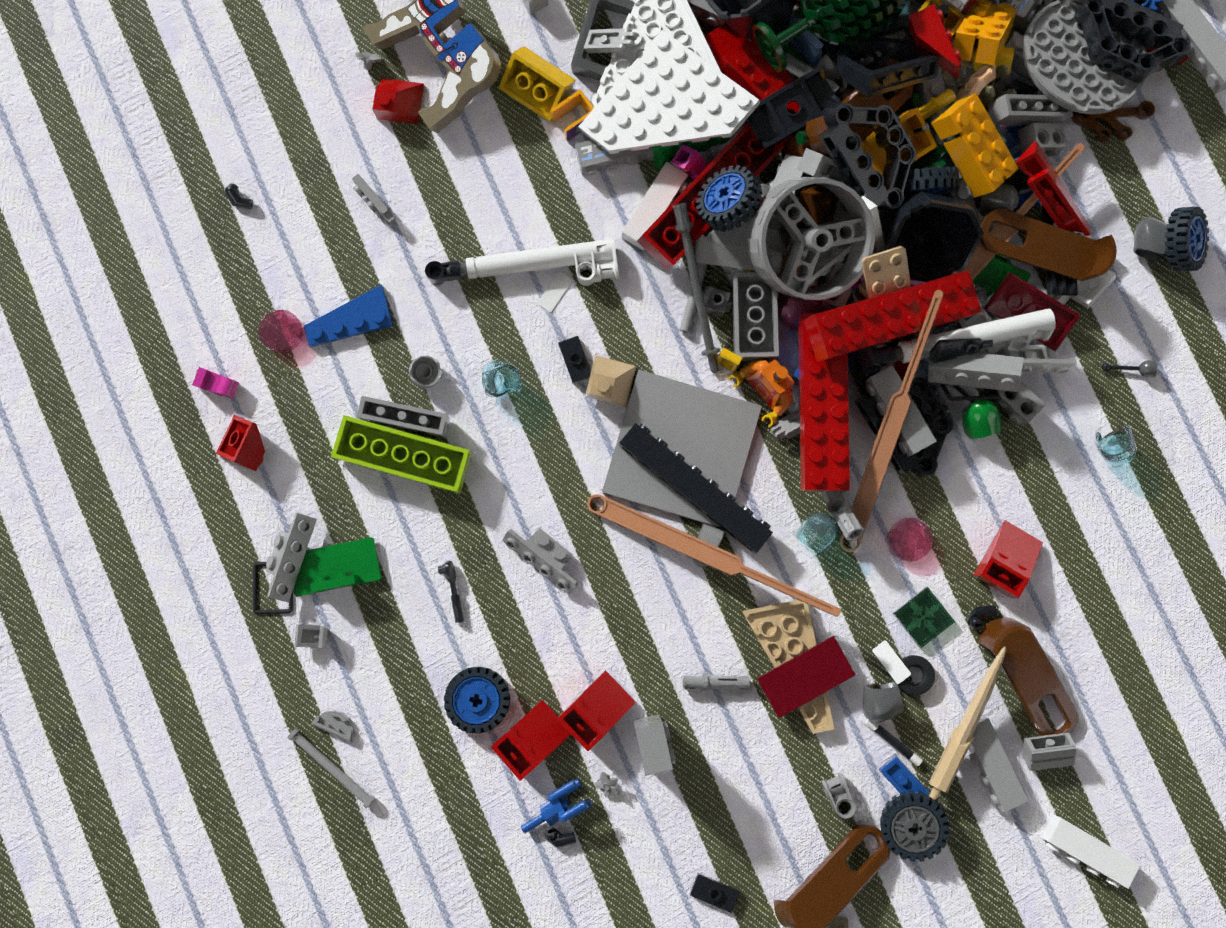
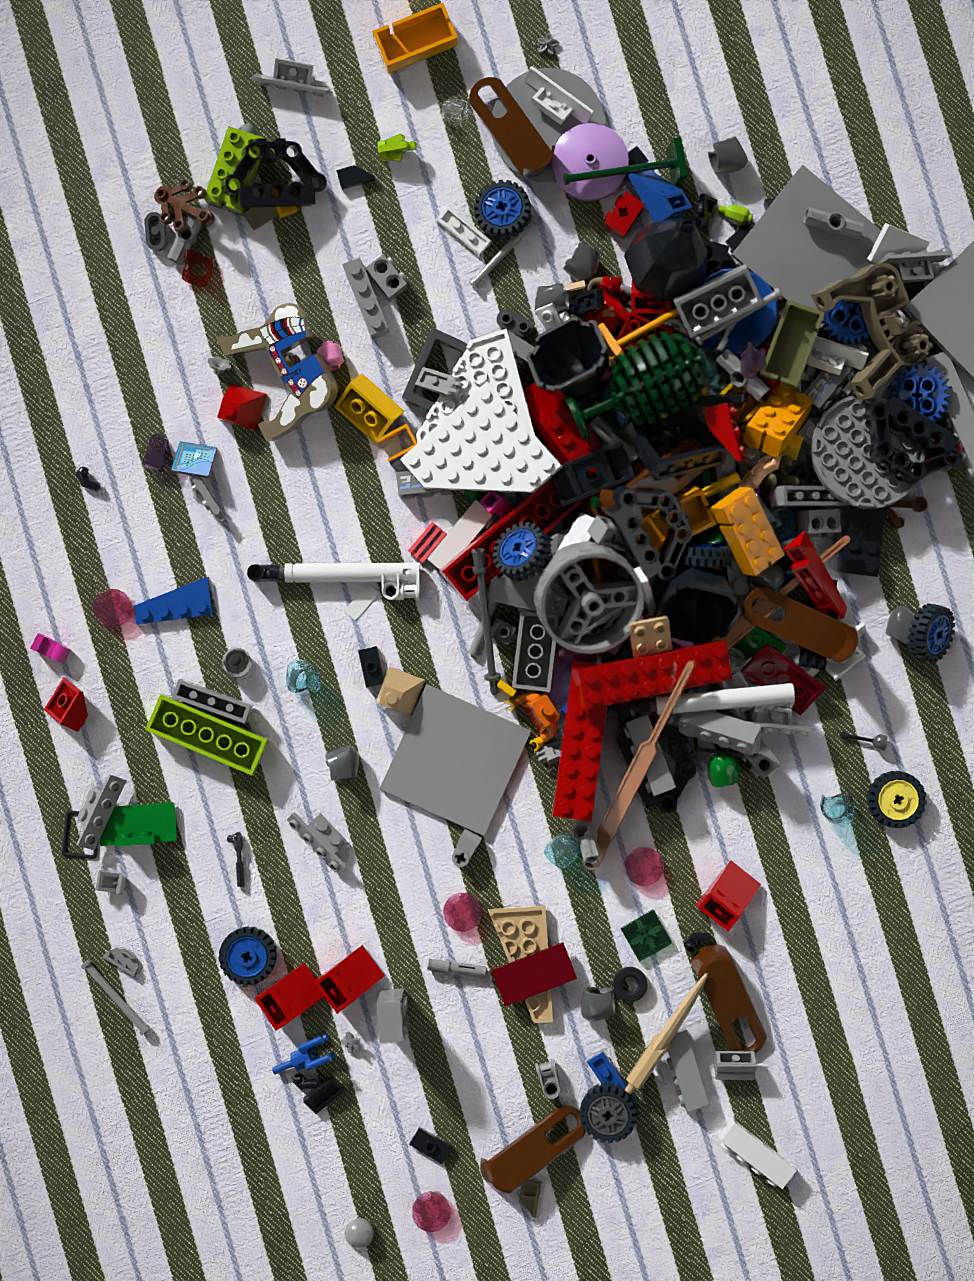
camera: 10 degrees right, 5 degrees up
(310, 162) = (156, 456): none -> clear purple piece
(352, 160) = (194, 459): none -> piece
(490, 30) = (331, 354): none -> bright pink head
(558, 468) = (343, 763): none -> dark grey piece
(584, 849) = (324, 1094): none -> black plate
(627, 203) = (423, 535): none -> coral tile
(695, 488) = (464, 801): black brick -> none
(697, 549) = (452, 850): nougat piece -> none
(713, 617) = (462, 911): none -> clear pink tile
(891, 662) = (611, 970): white sticker -> none
(894, 742) = (604, 1039): black bar -> none
(952, 348) = (700, 709): black piece -> none
(1095, 171) = (858, 556): none -> black piece
(1176, 443) = (883, 793): none -> wheel

